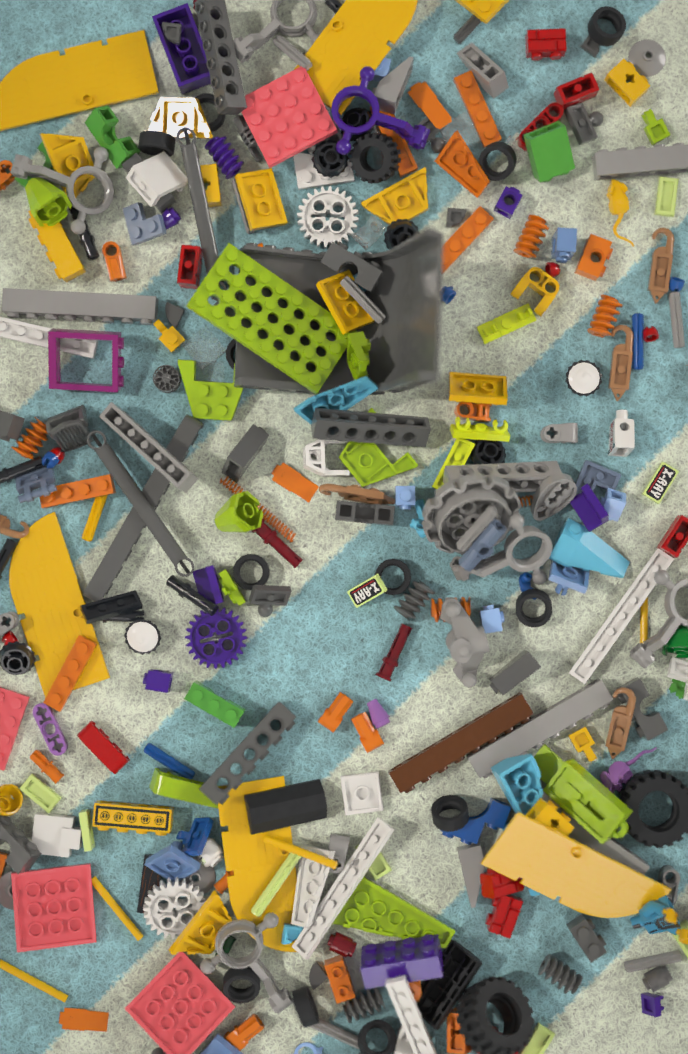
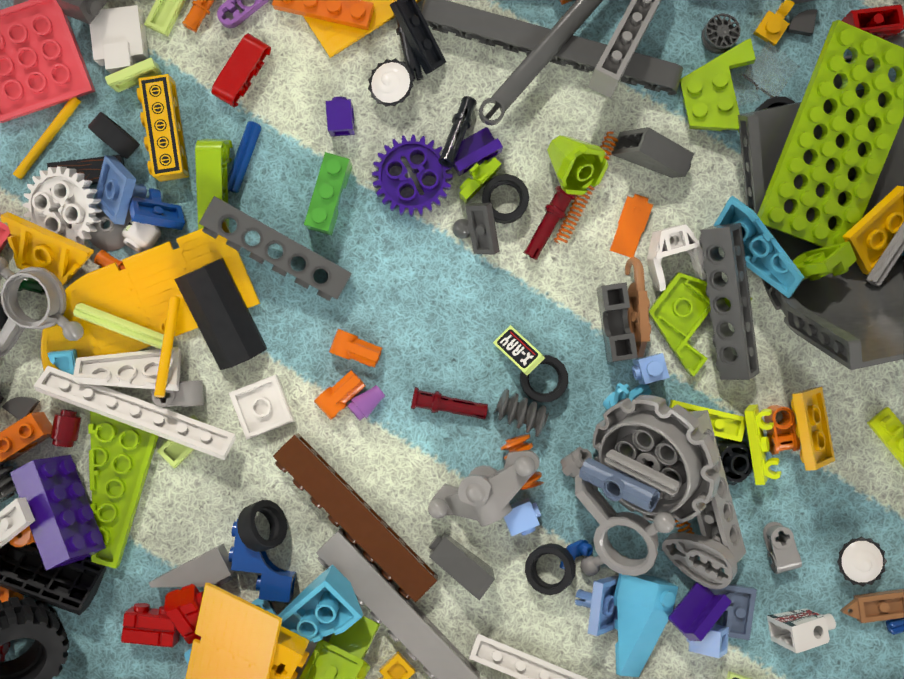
camera: 75 degrees right, 0 degrees up
(130, 855) = (113, 135): none -> black tyre

